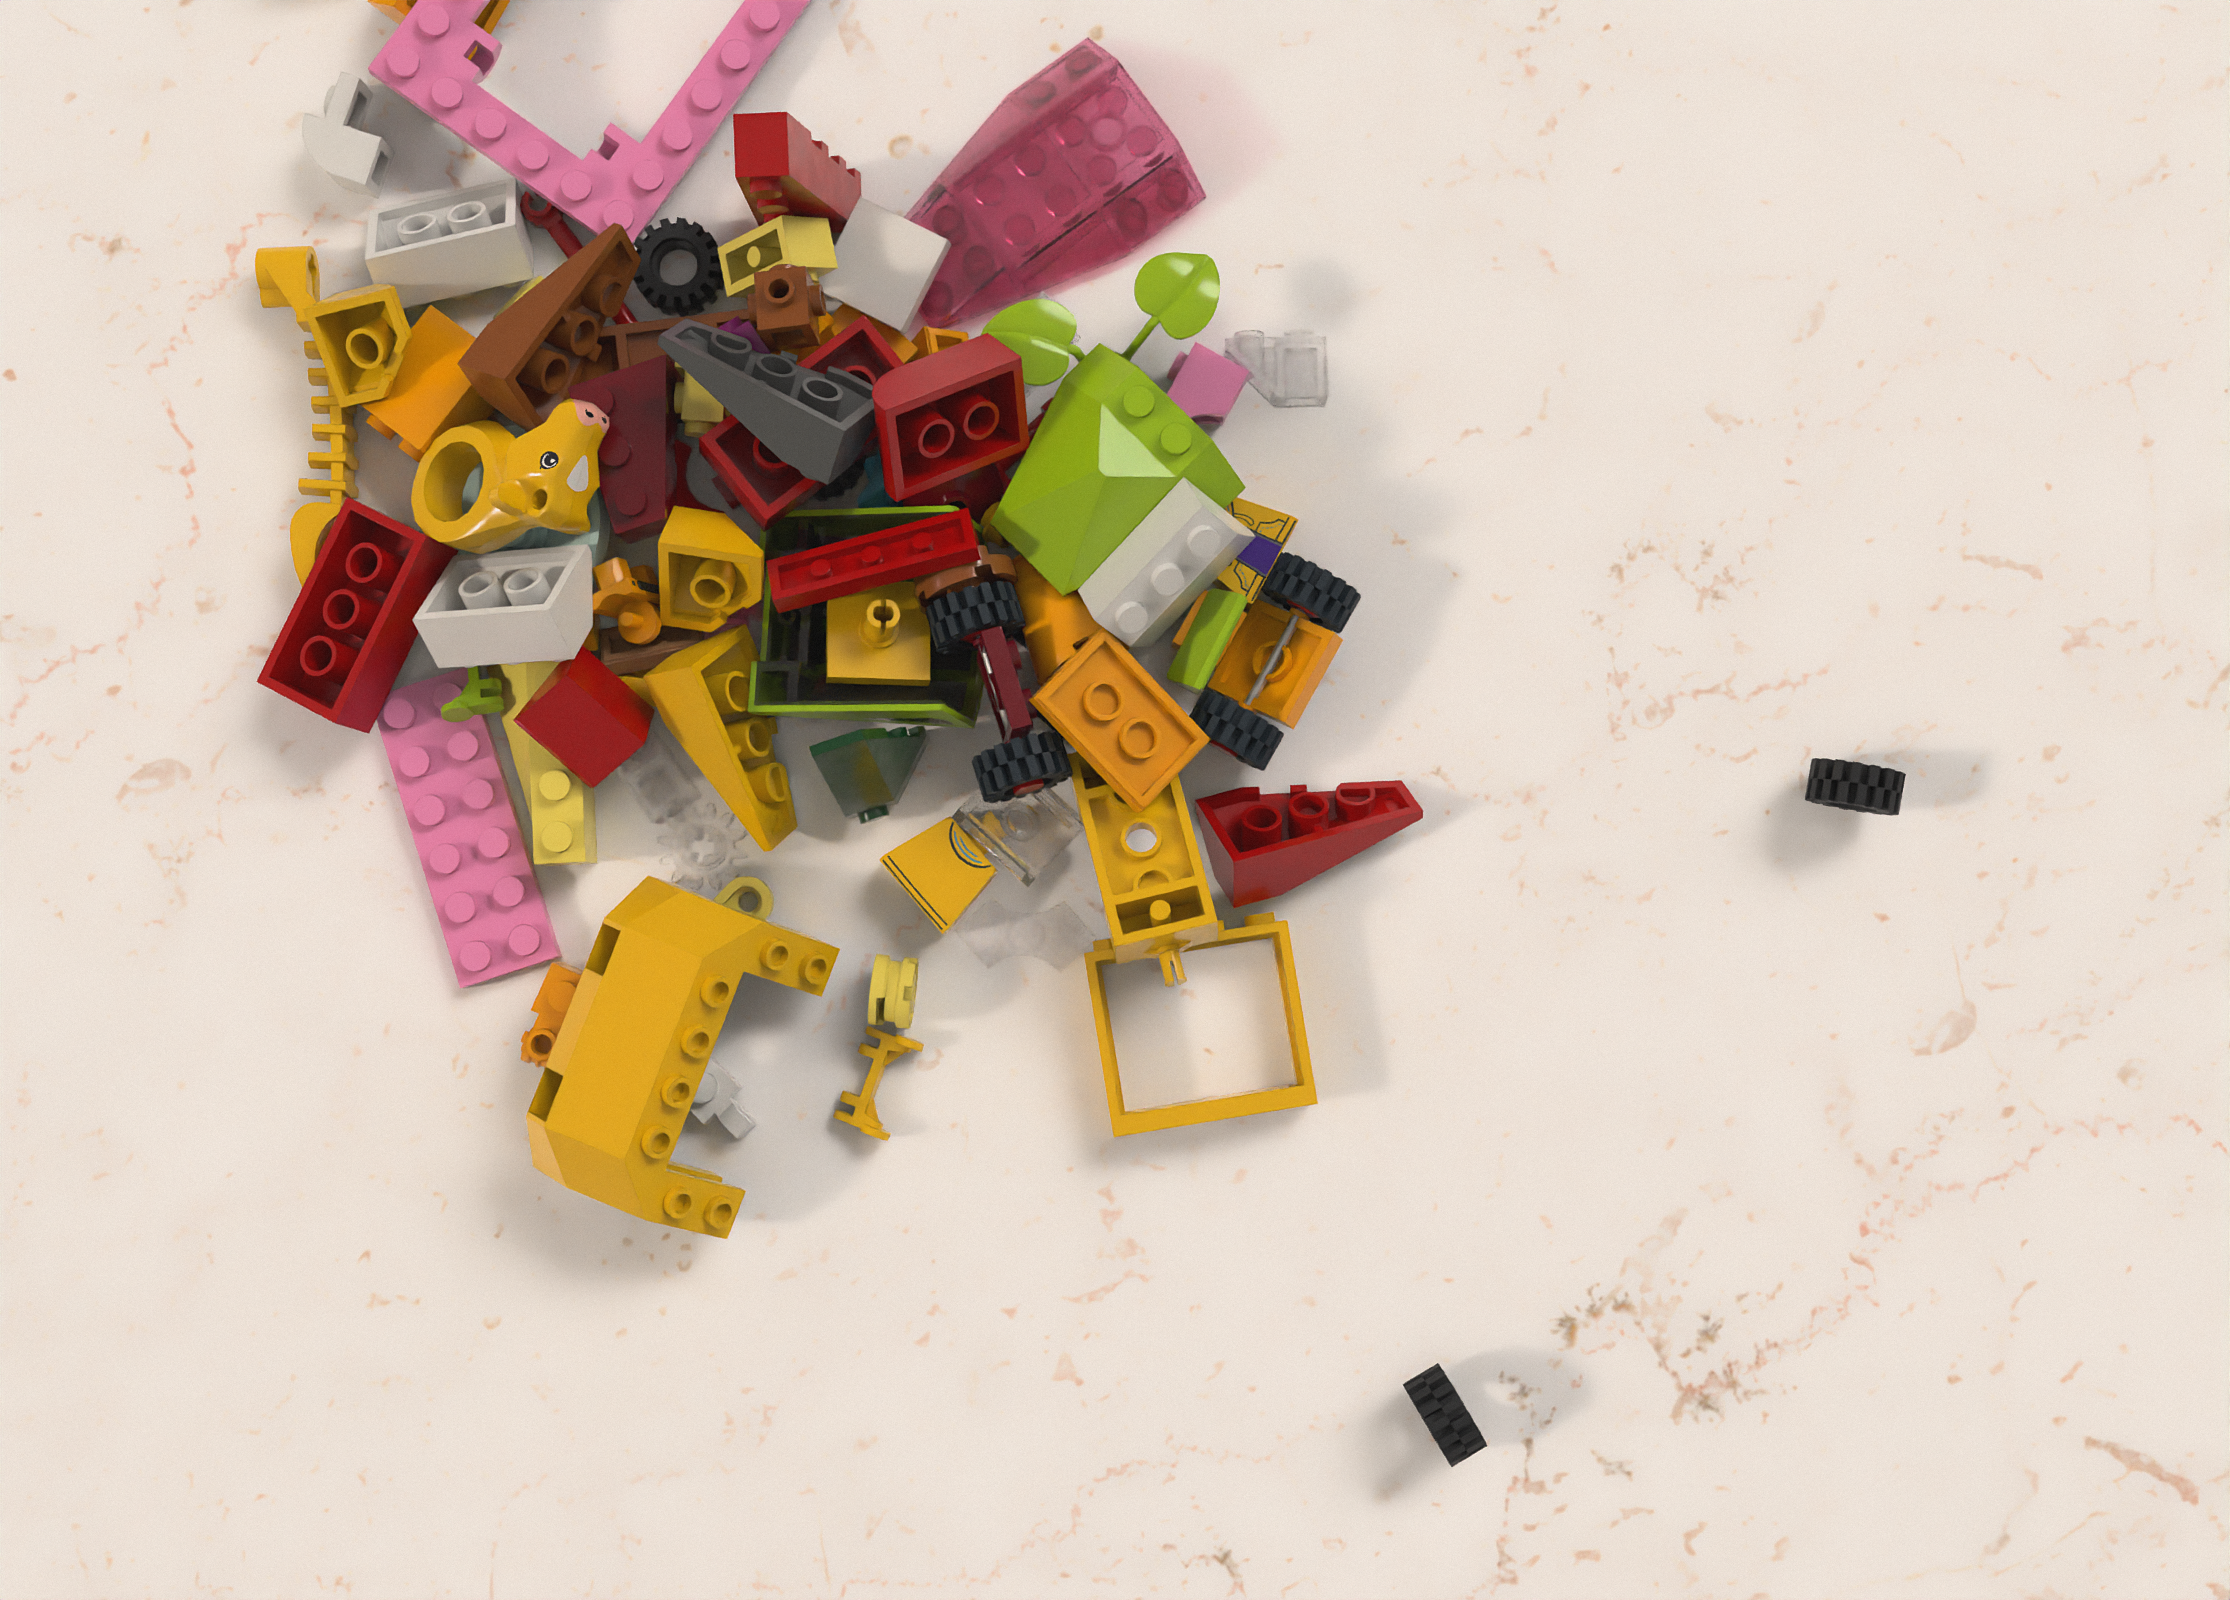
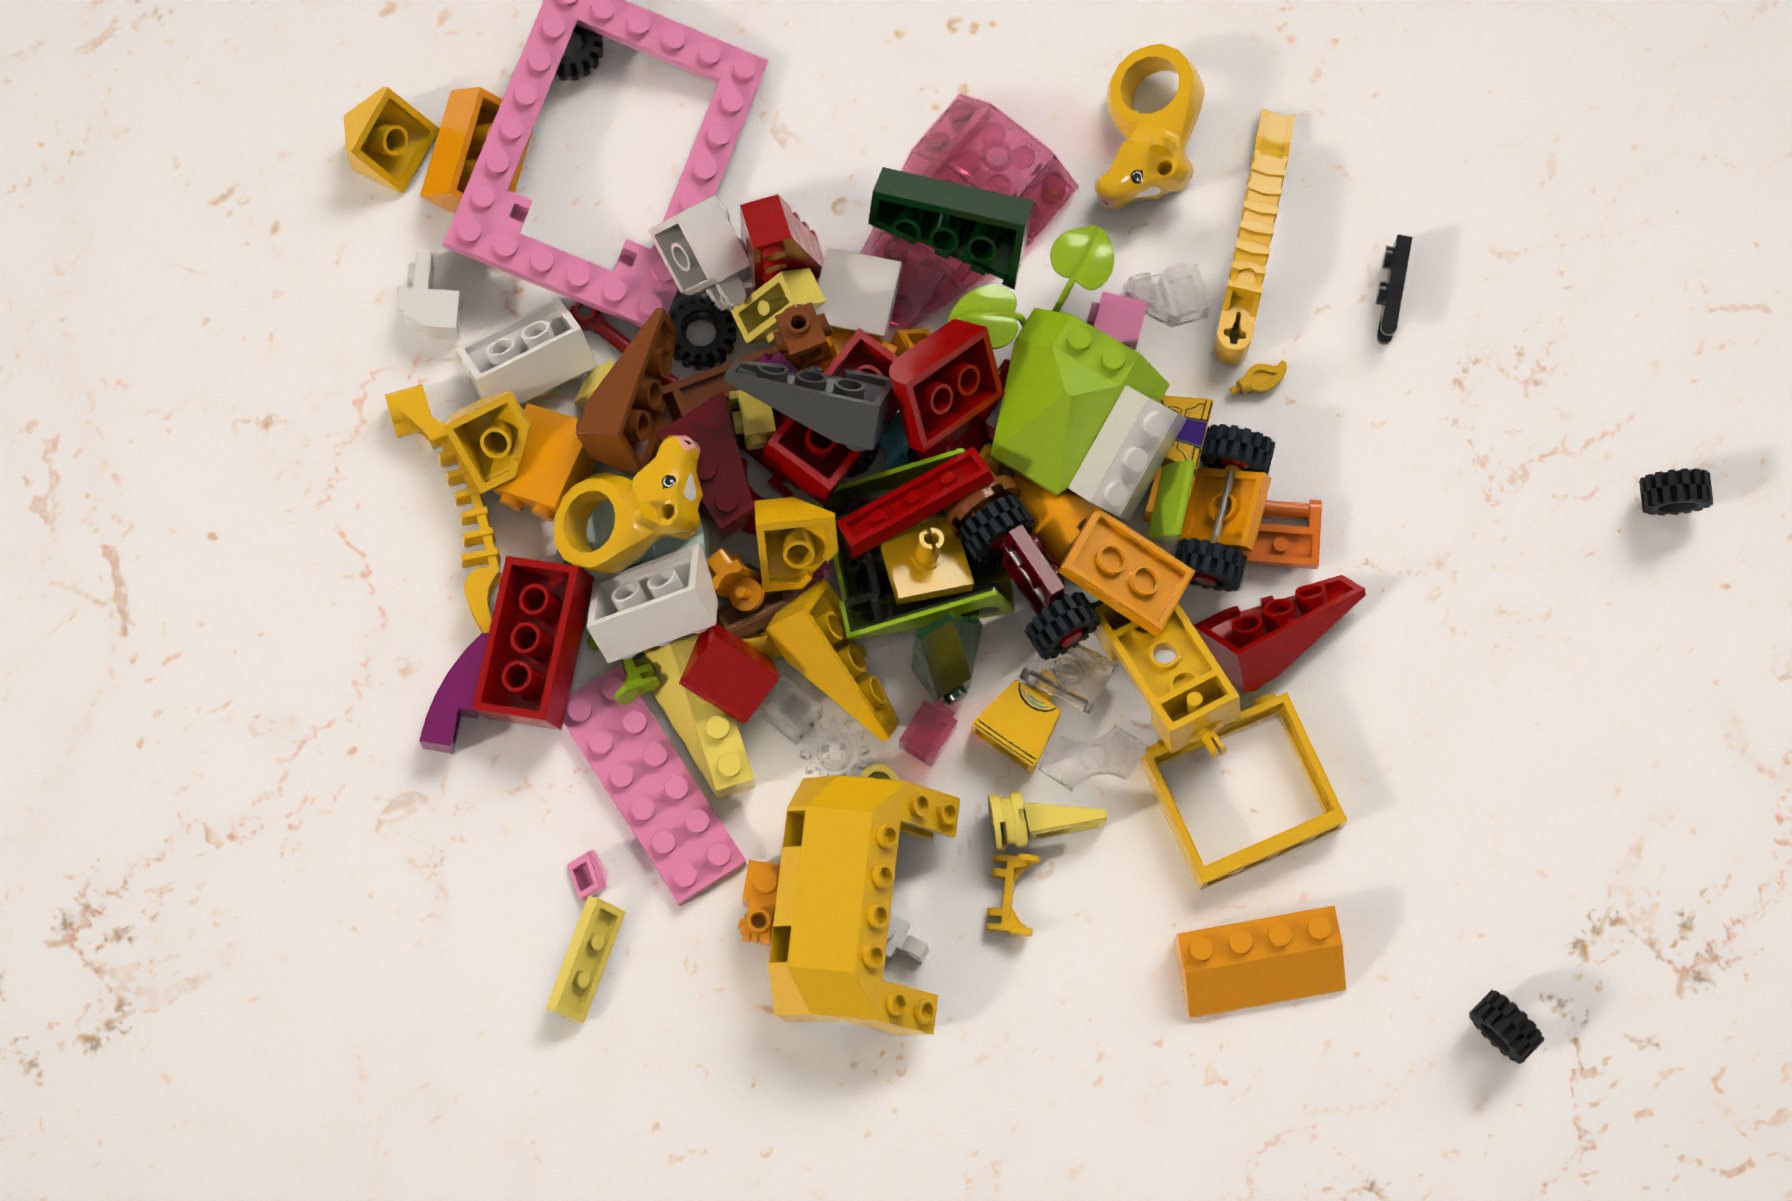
camera: 15 degrees left, 10 degrees down
(232, 673) = (454, 699): none -> magenta slope
(325, 1031) = (585, 960): none -> light yellow plate
(360, 924) = (588, 875): none -> bright pink slope
(694, 163) = (704, 252): none -> white hinge
(826, 852) = (928, 732): none -> clear pink brick
(951, 1003) = (1056, 820): none -> light yellow slope
(1024, 203) = (954, 220): none -> dark green wedge
(1162, 1247) = (1261, 961): none -> light orange slope
(1311, 178) = (1154, 152): none -> yellow animal
(1345, 726) = (1285, 543): none -> orange plate
(1368, 503) = (1260, 378): none -> yellow piece
(1411, 314) = (1254, 235): none -> yellow piece
(1564, 434) = (1390, 292): none -> black hinge

